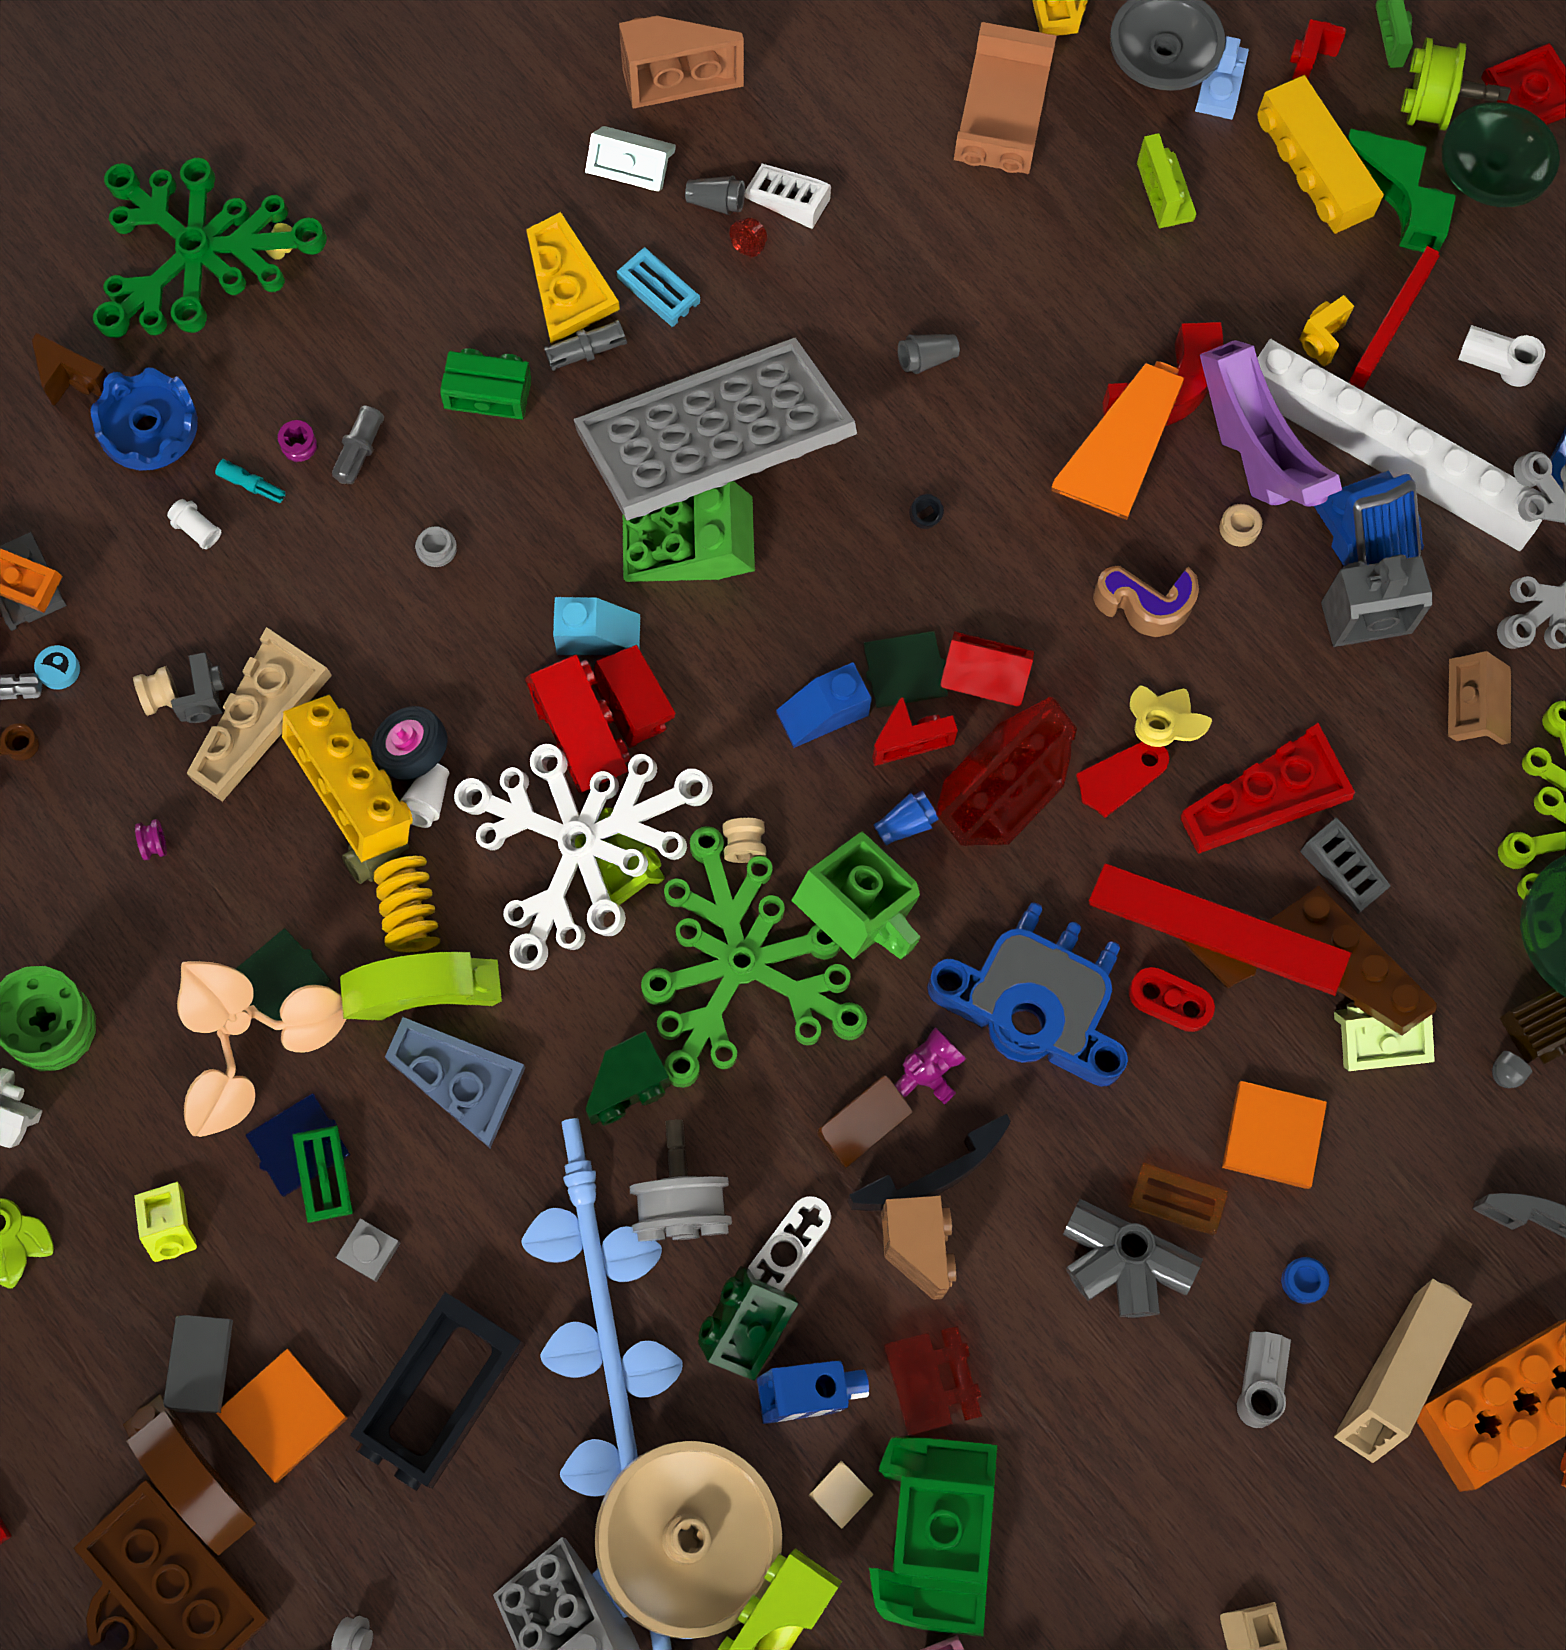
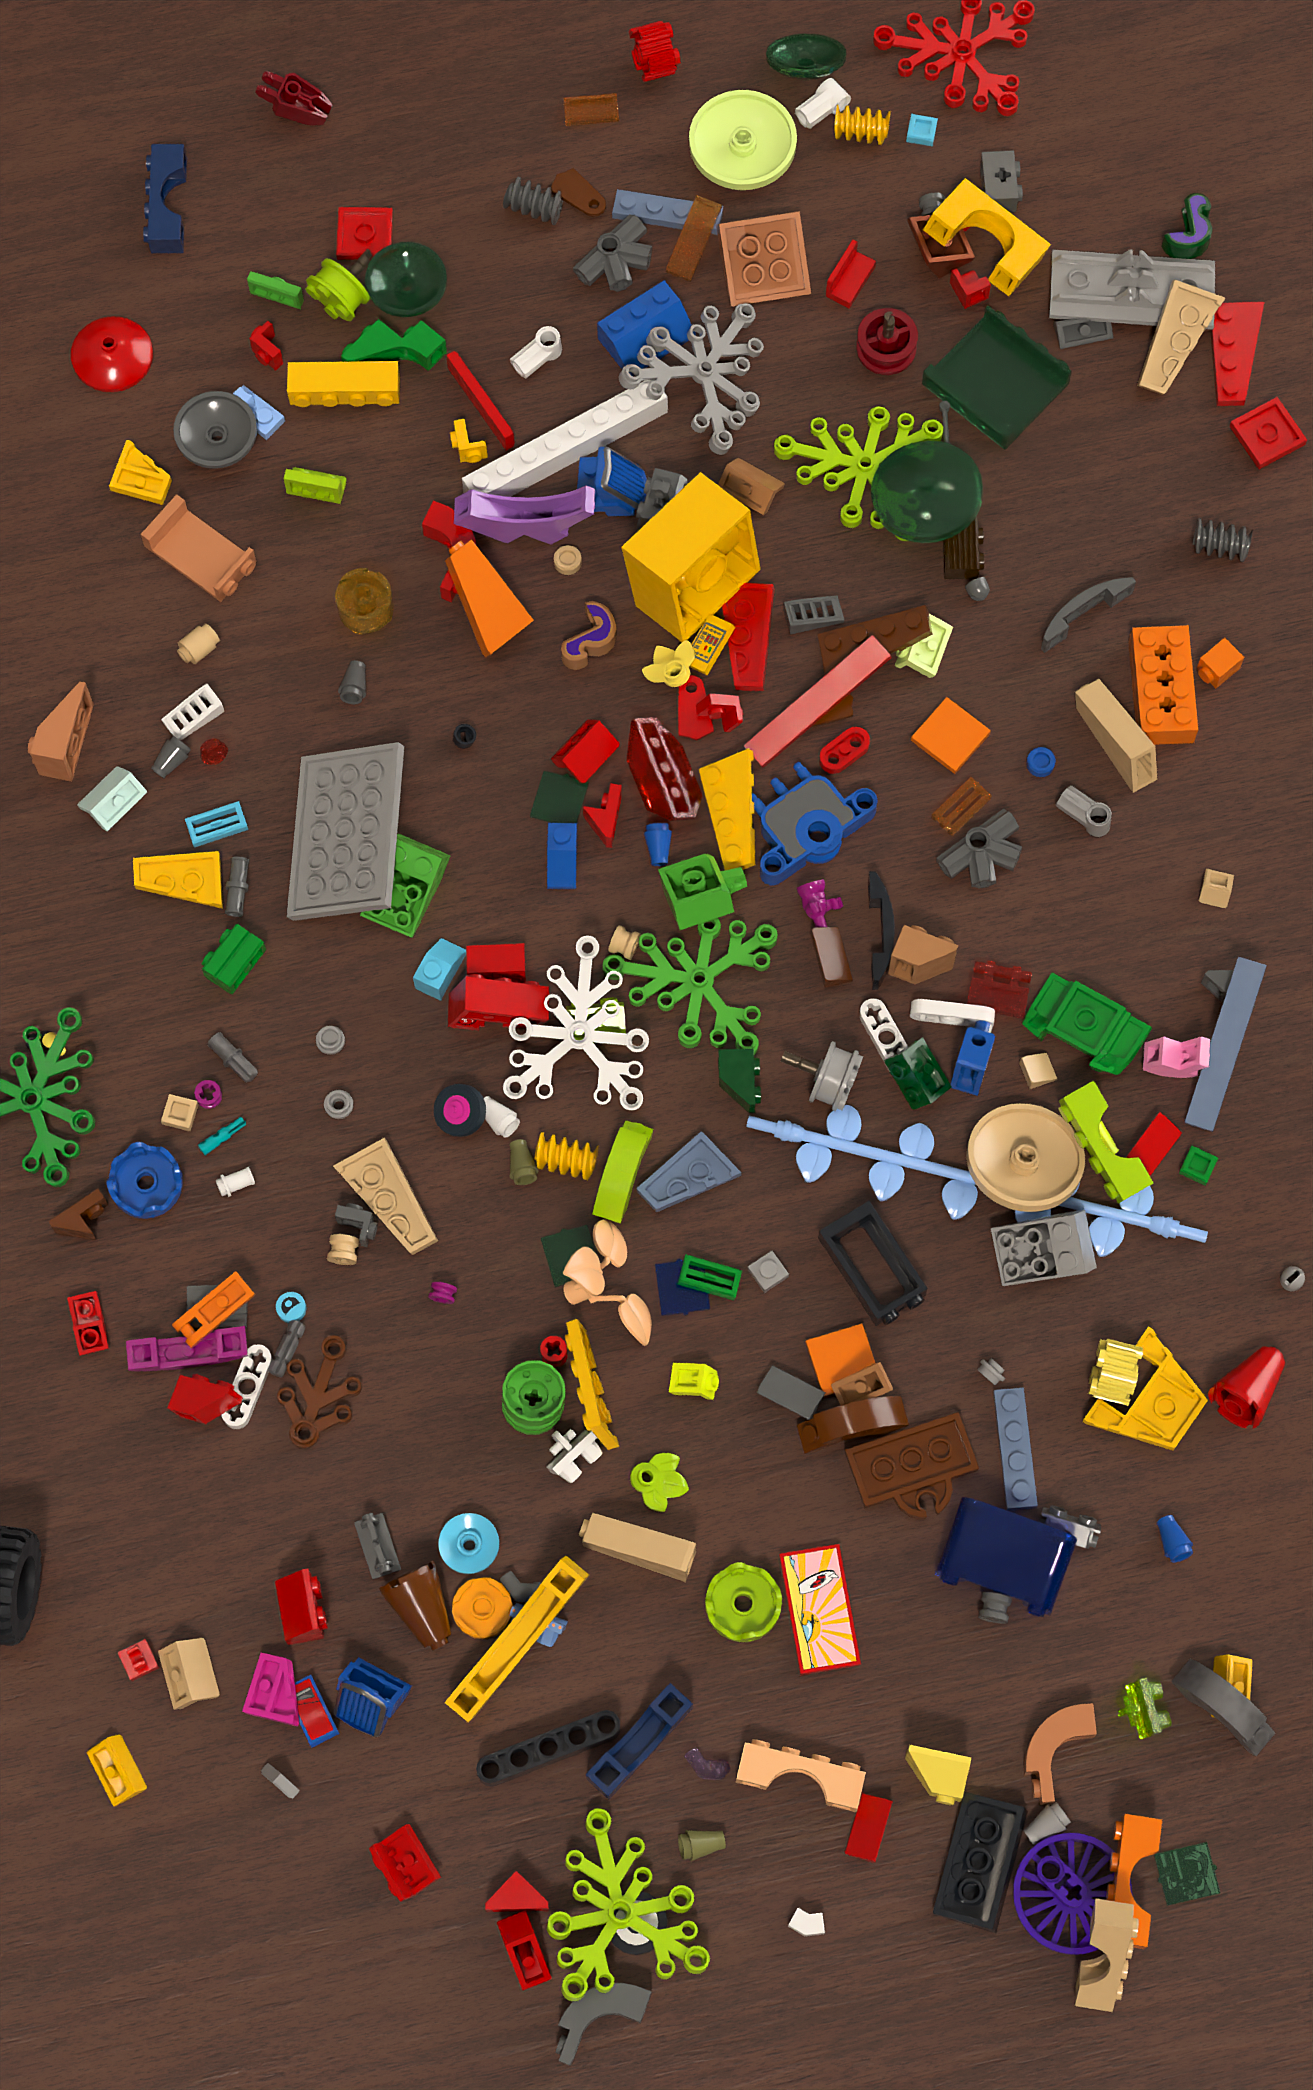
camera: 60 degrees left, 0 degrees up
(95, 1084) = (590, 1387): none -> yellow wing
(121, 1006) = (551, 1343): none -> red bush
(240, 1461) = (862, 1385): none -> medium nougat slope
(255, 418) = (179, 1112): none -> tan plate
(346, 777) = (466, 1154): yellow brick -> none
(354, 585) = (335, 1096): none -> light grey plate
(862, 1330) = (950, 1012): none -> white beam
(879, 154) = (197, 644): none -> tan brick
(1020, 876) = (731, 807): none -> yellow wing
(1040, 308) = (369, 614): none -> clear yellow brick
(1141, 806) = (724, 707): none -> red bracket
(1224, 752) = (710, 643): none -> yellow tile
(1322, 658) = (691, 557): none -> yellow piece

